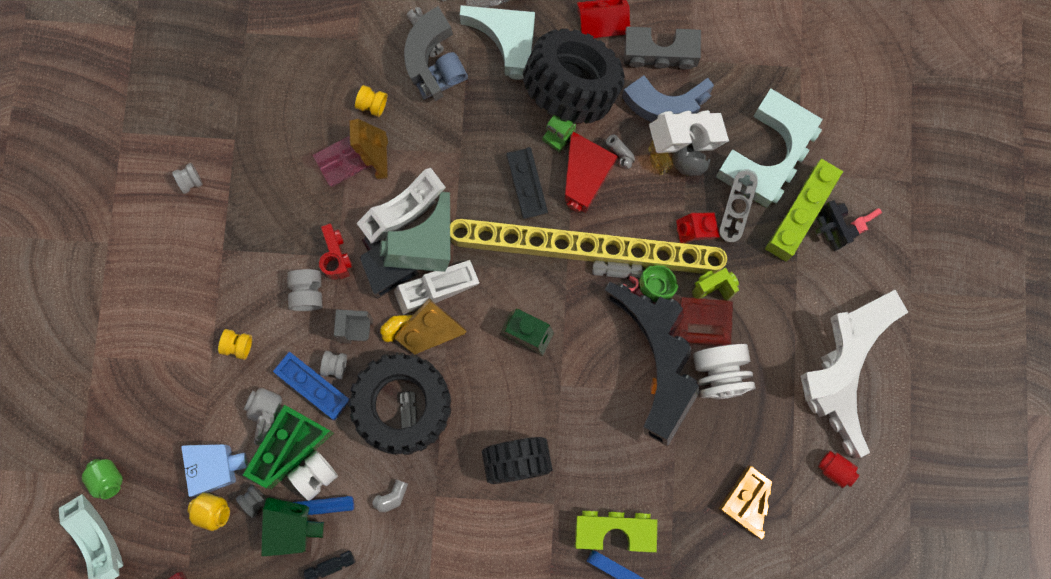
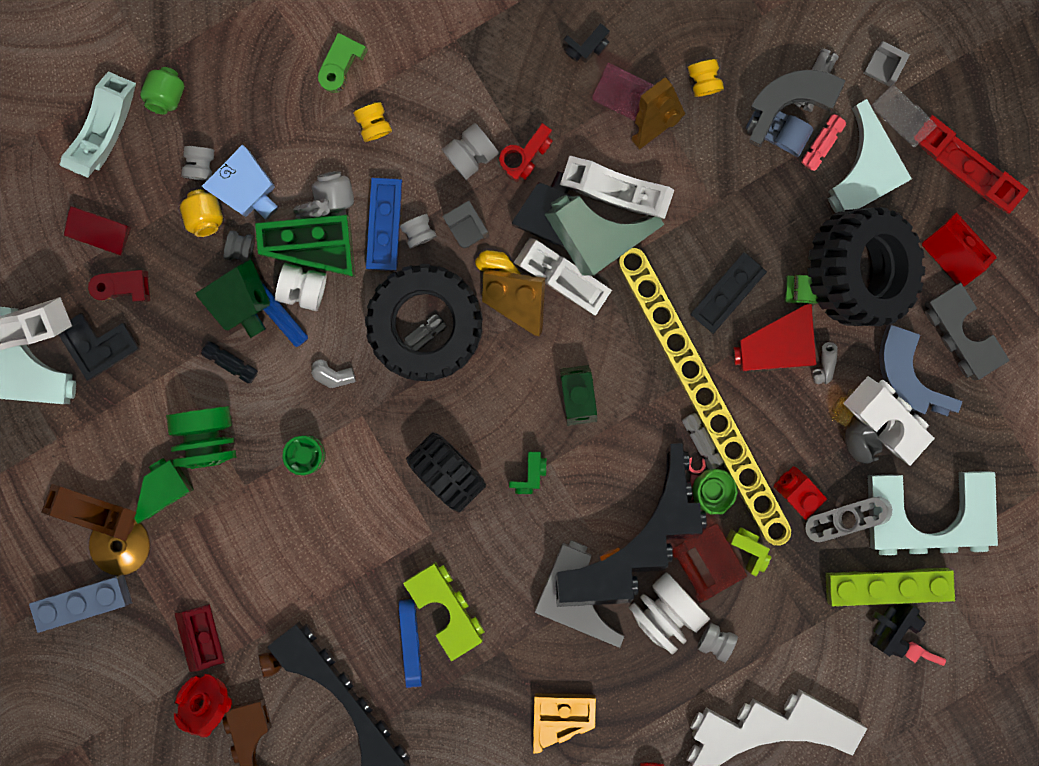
camera: 65 degrees right, 10 degrees up
(171, 489) = (197, 163): none -> light grey wheel
(176, 338) = (338, 61): none -> bright green leg
(294, 156) = (595, 43): none -> black bracket
(433, 557) = (304, 455): none -> green wheel
(469, 55) = (823, 142): none -> coral axle
(558, 397) = (536, 468): none -> green bracket
(684, 438) = (577, 617): none -> light grey arch
(766, 353) = (717, 642): none -> light grey wheel
(844, 366) = (750, 726): white arch -> none

